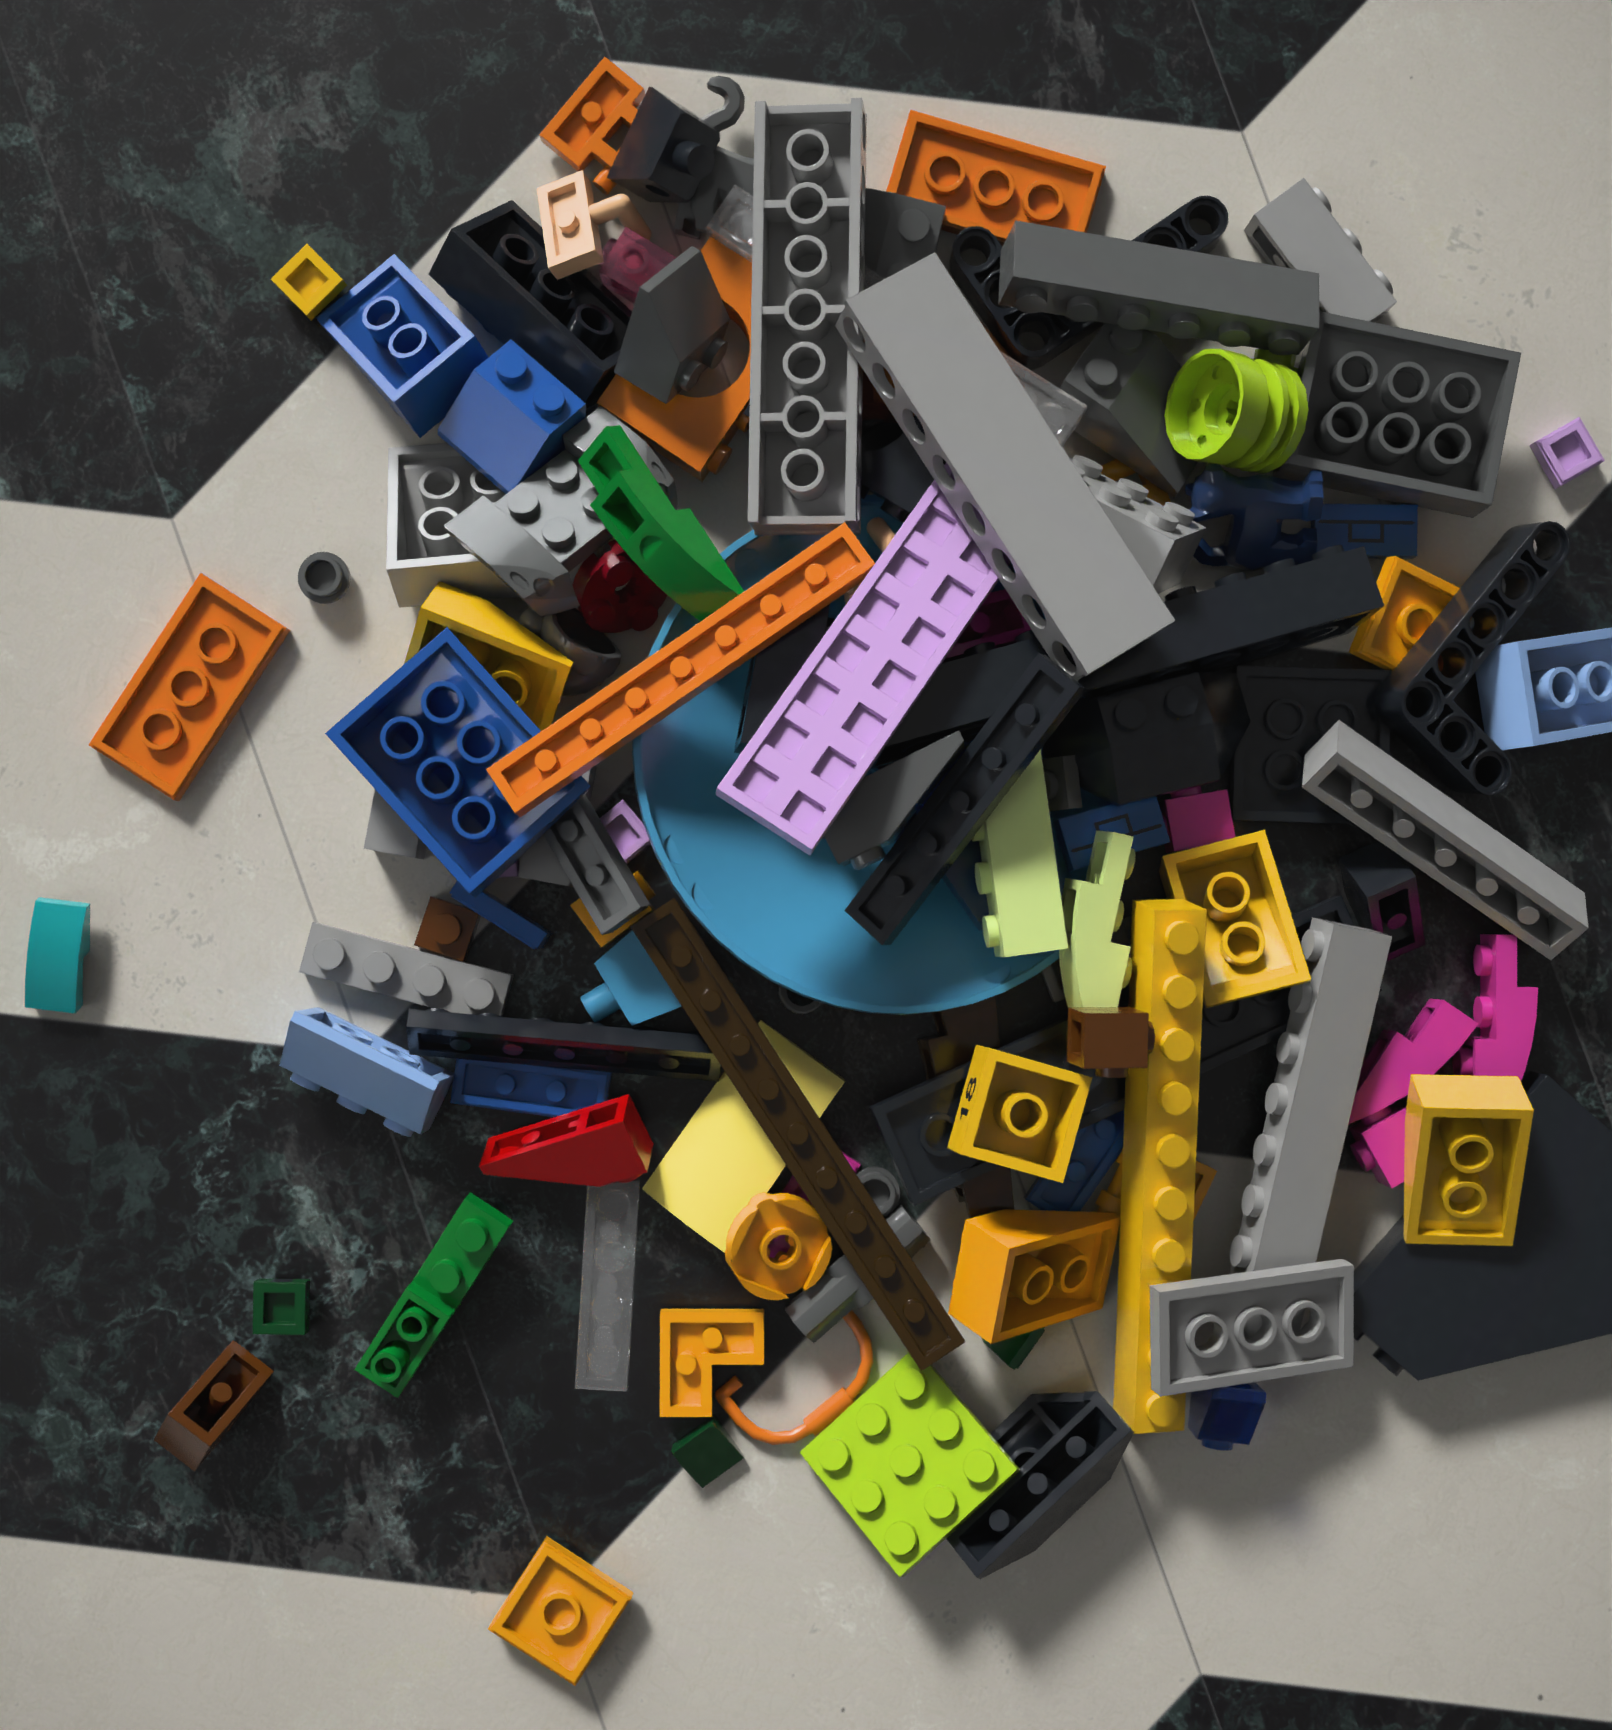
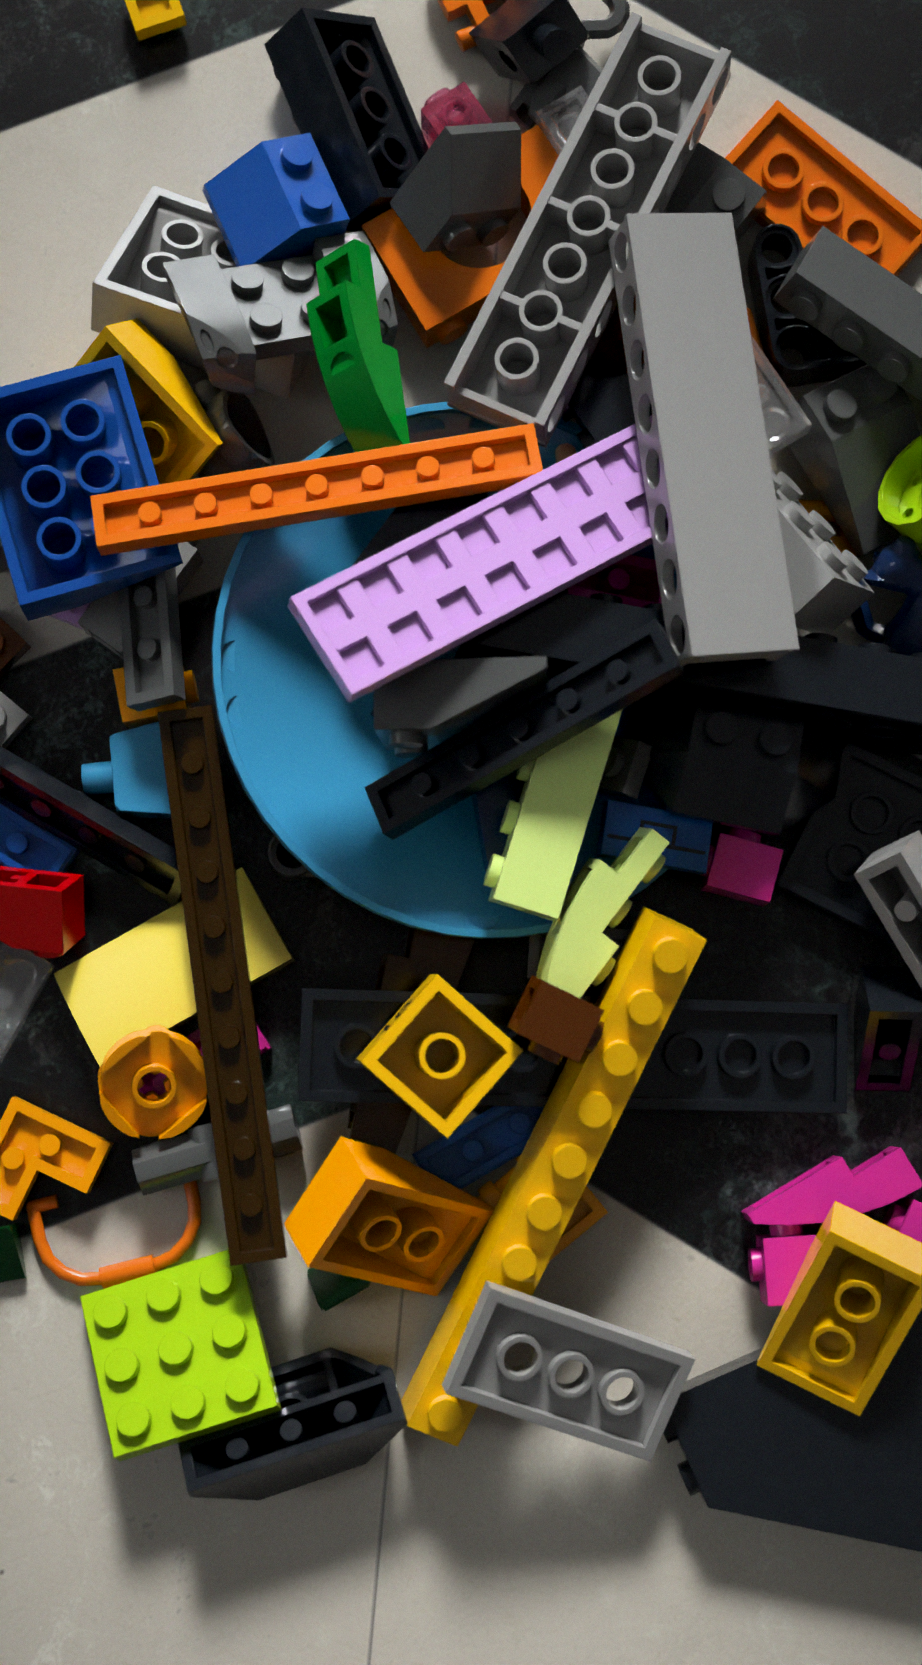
camera: 20 degrees right, 5 degrees down
(324, 577) = (36, 273): dark grey plate -> none
(404, 343) = (212, 96): blue slope -> none
(503, 916) = (47, 656): blue tile -> none
(572, 223) = (418, 56): light nougat plate -> none
(615, 610) = (278, 412): dark red plate -> none
(626, 830) = (197, 632): lavender tile -> none
(882, 1187) = (279, 1079): dark grey plate -> none
(1226, 1415) = (506, 1450): clear blue slope -> none
(1248, 919) = (742, 975): yellow slope -> none
(1310, 1101) = (726, 1184): light grey brick -> none

